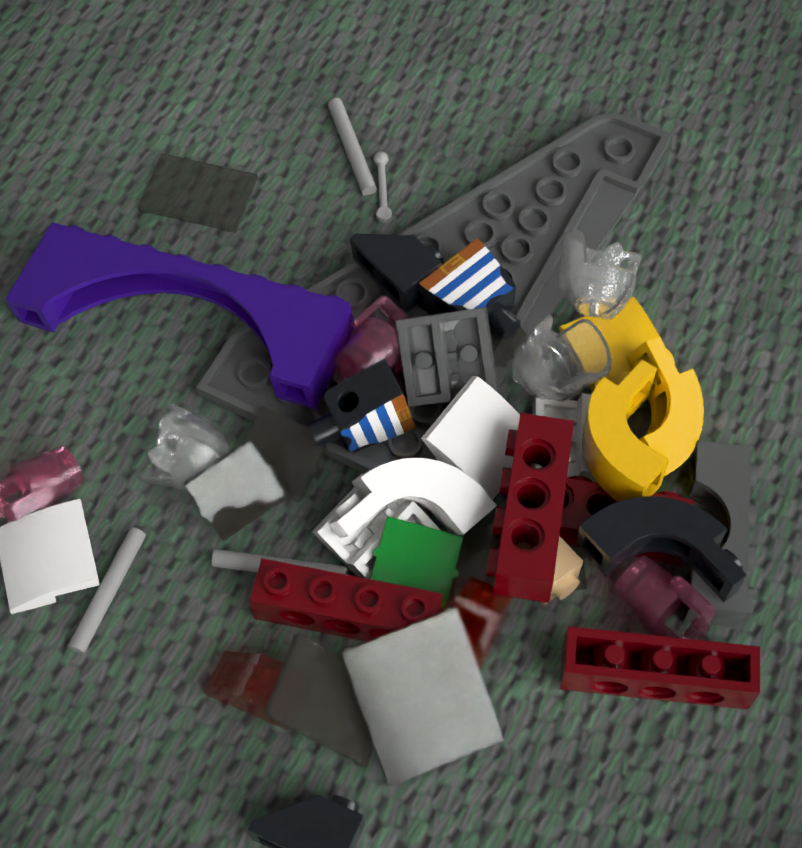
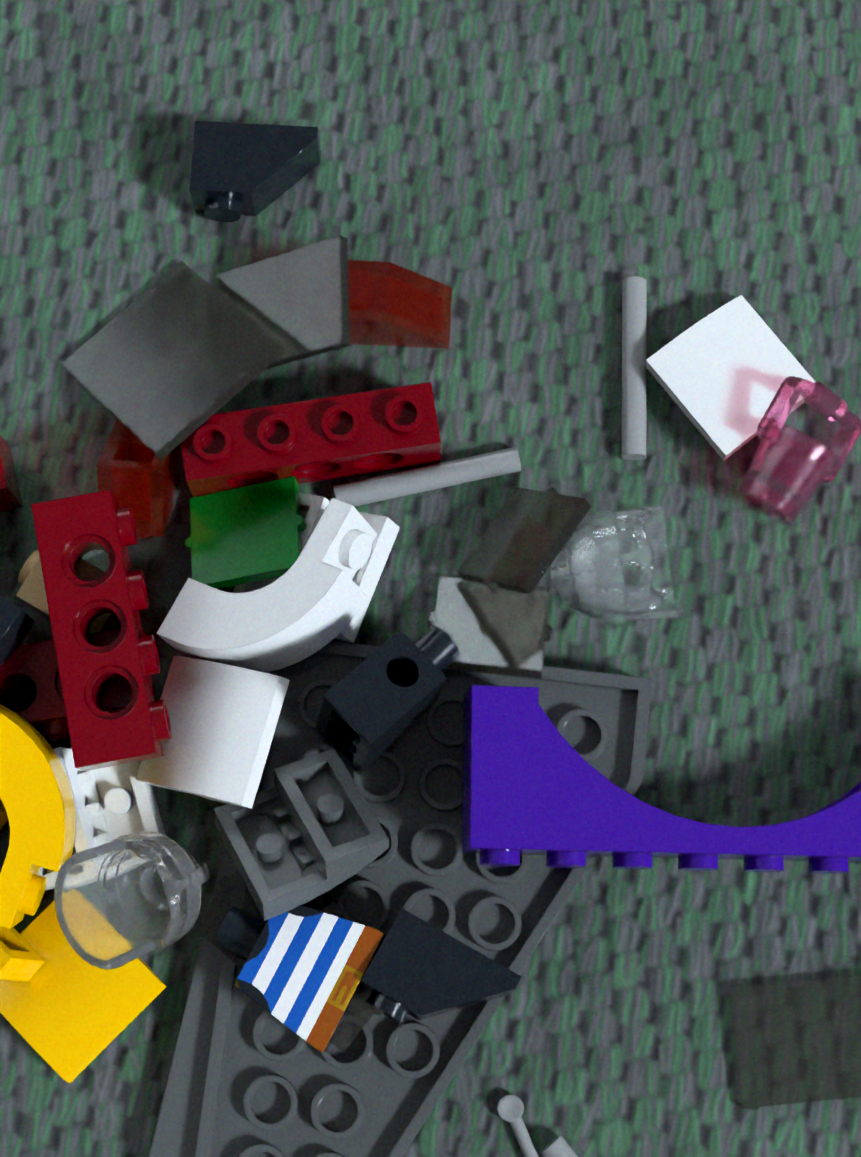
camera: 160 degrees right, 15 degrees up
(372, 340) = (417, 804): clear pink piece -> none
(593, 277) = (130, 1054): clear helmet -> none

